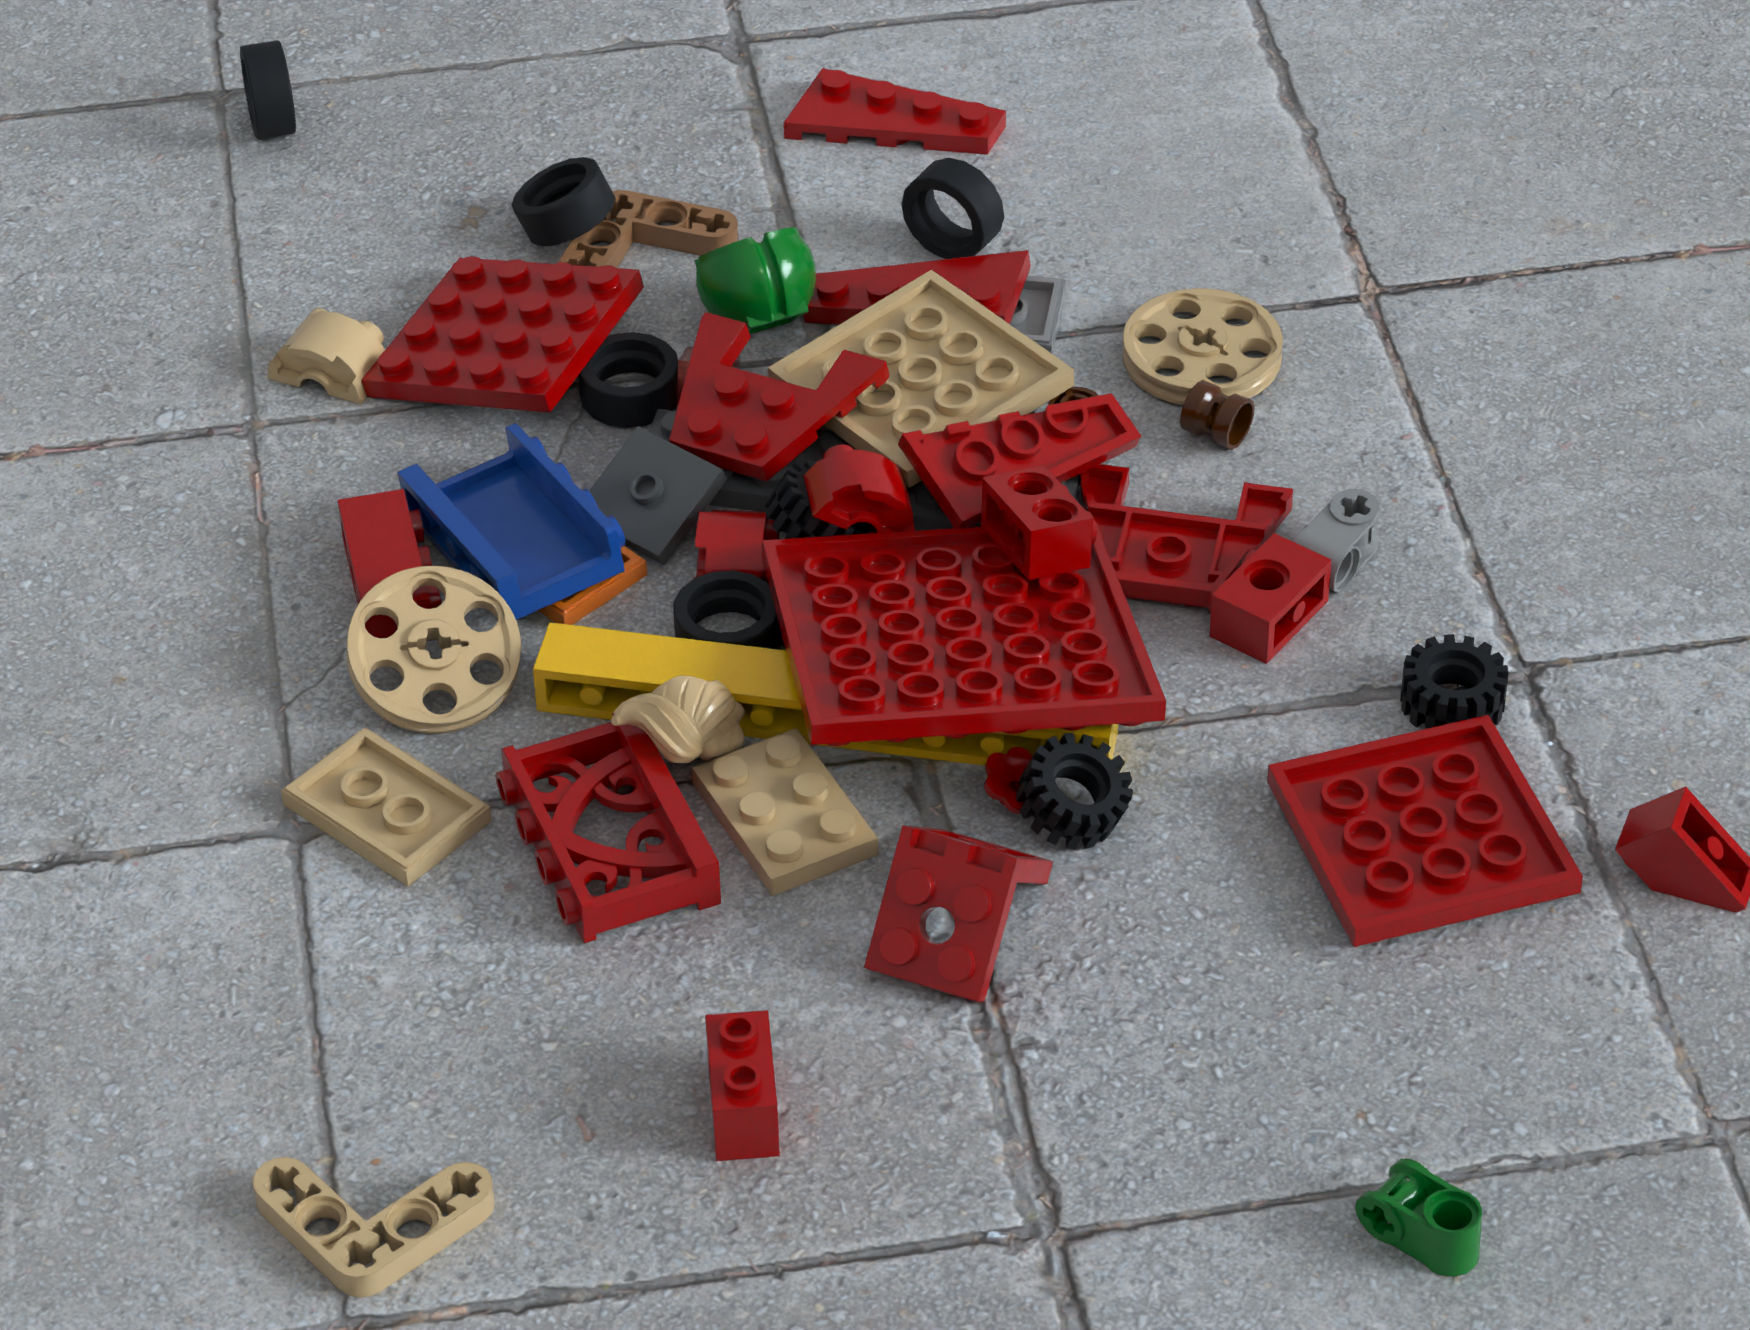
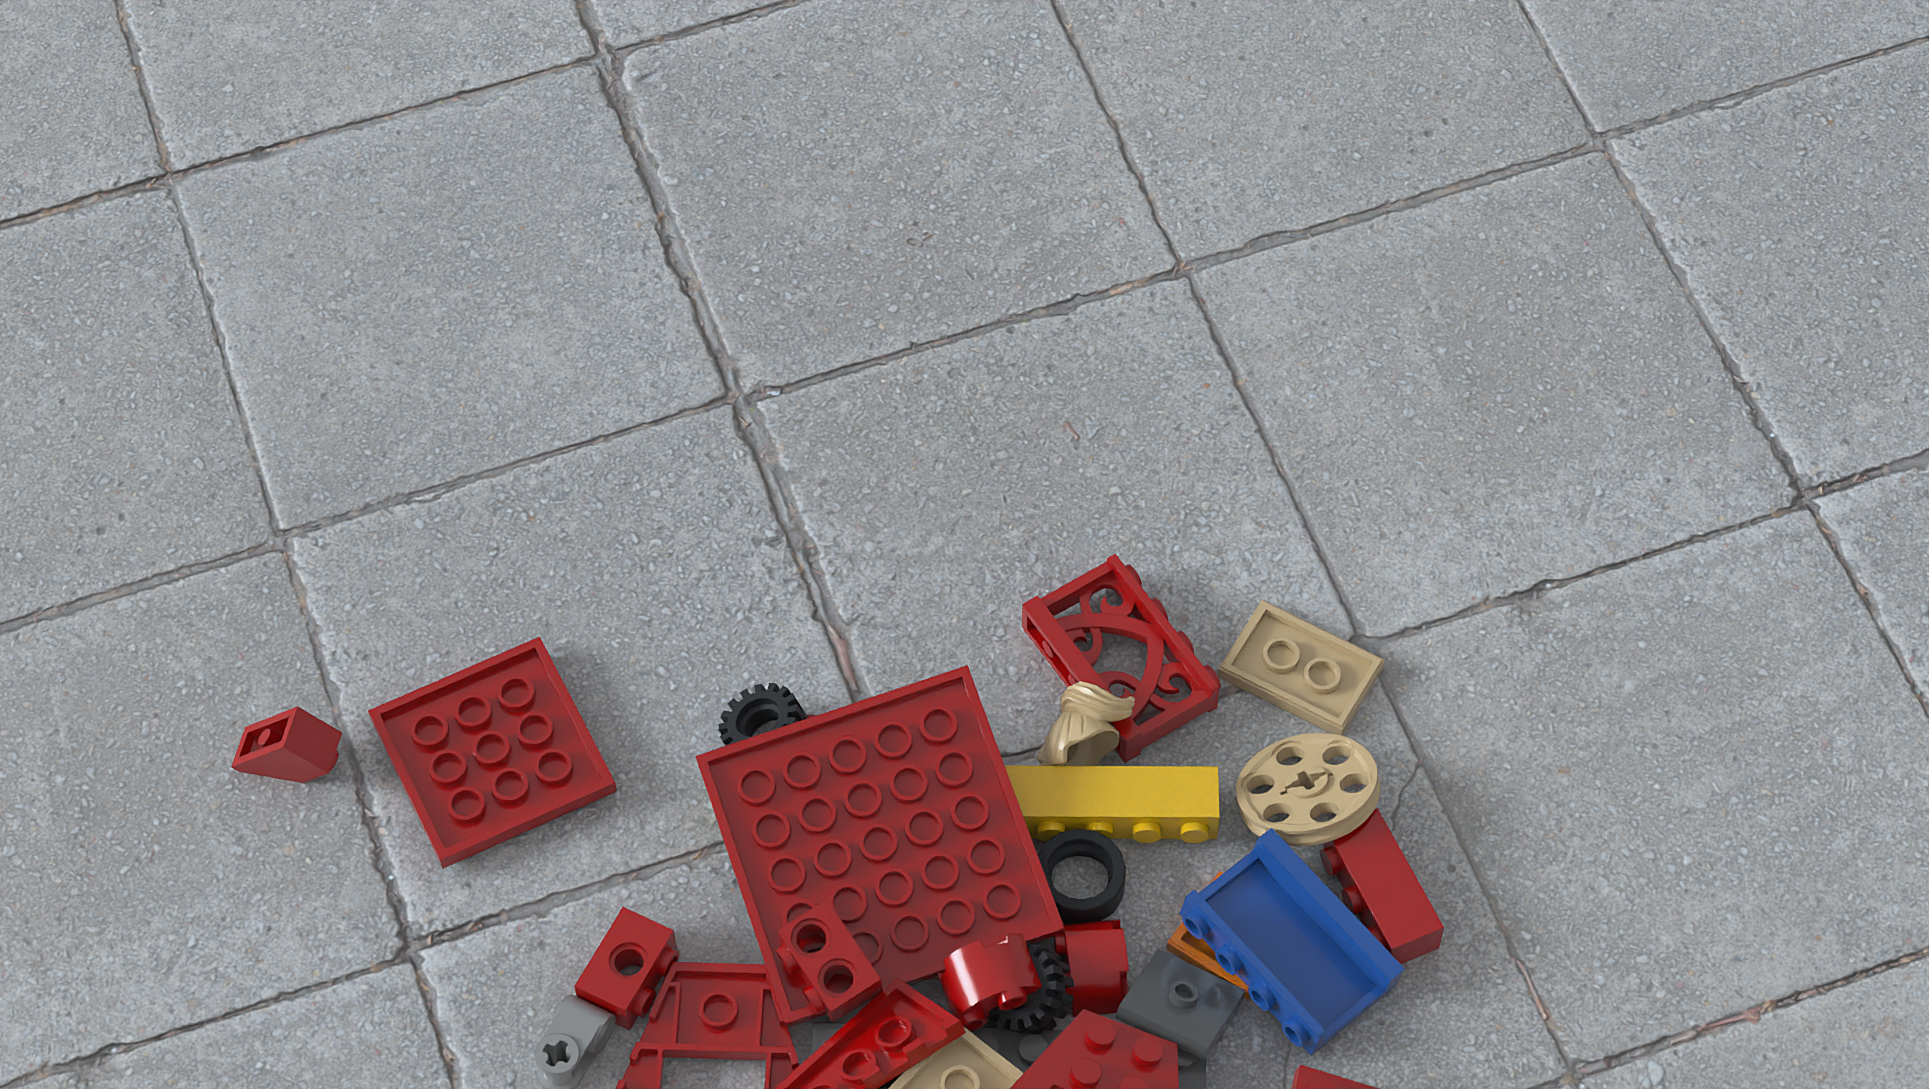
camera: 170 degrees right, 15 degrees up
(361, 1239) = (1198, 317): tan beam -> none
(742, 1085) = (964, 445): red brick -> none
(784, 811) = (1012, 702): tan plate -> none
(968, 880) = (837, 602): red bracket -> none
(1426, 1218) = (490, 423): green piece -> none
(1453, 664) = (461, 875): black tyre -> none

